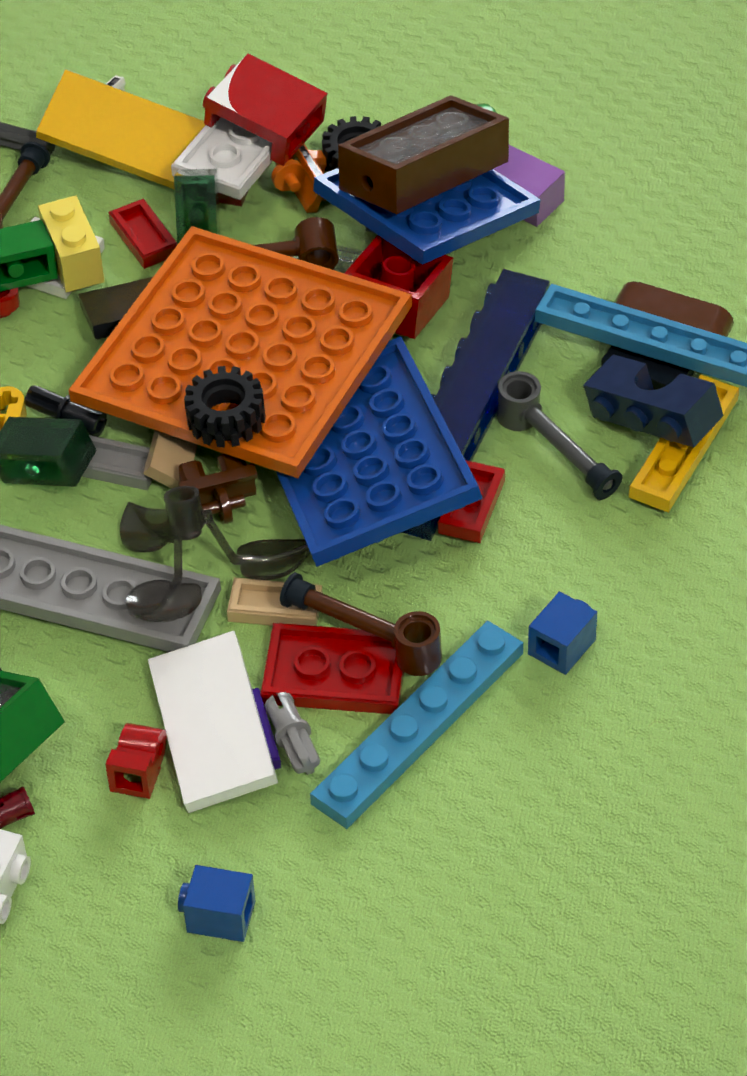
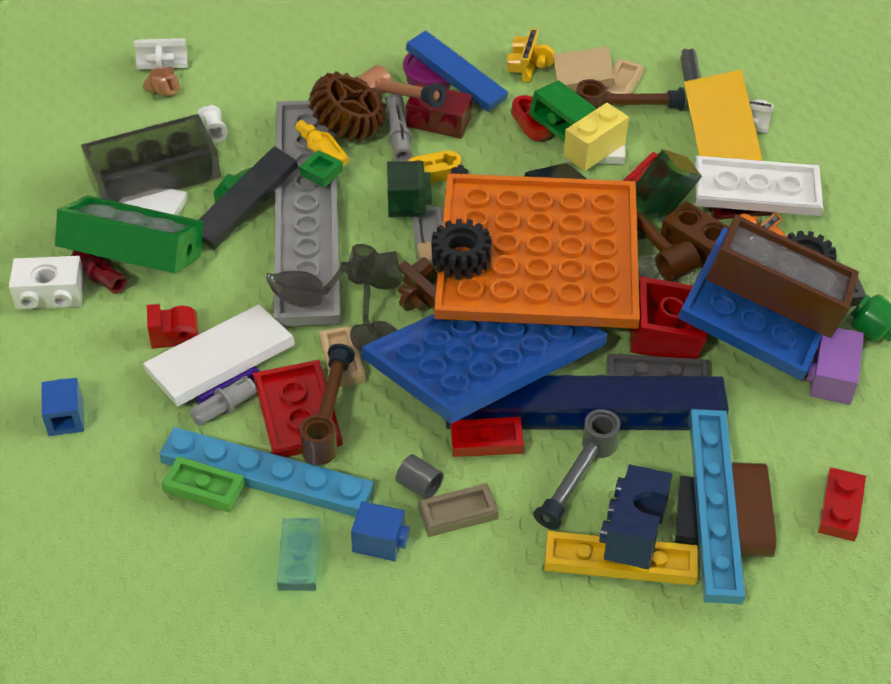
camera: 65 degrees right, 0 degrees up
(267, 105) = (780, 181): red panel -> none
(271, 215) = (694, 226): none -> reddish brown brick
(414, 783) = (203, 484): none -> bright green plate
(450, 323) = (654, 366): none -> dark grey tile
(502, 576) = (419, 476): none -> dark grey beam
(555, 560) = (457, 510): none -> dark tan tile
(559, 715) = (298, 554): none -> clear light blue plate
(689, 254) = (842, 504): none -> red plate

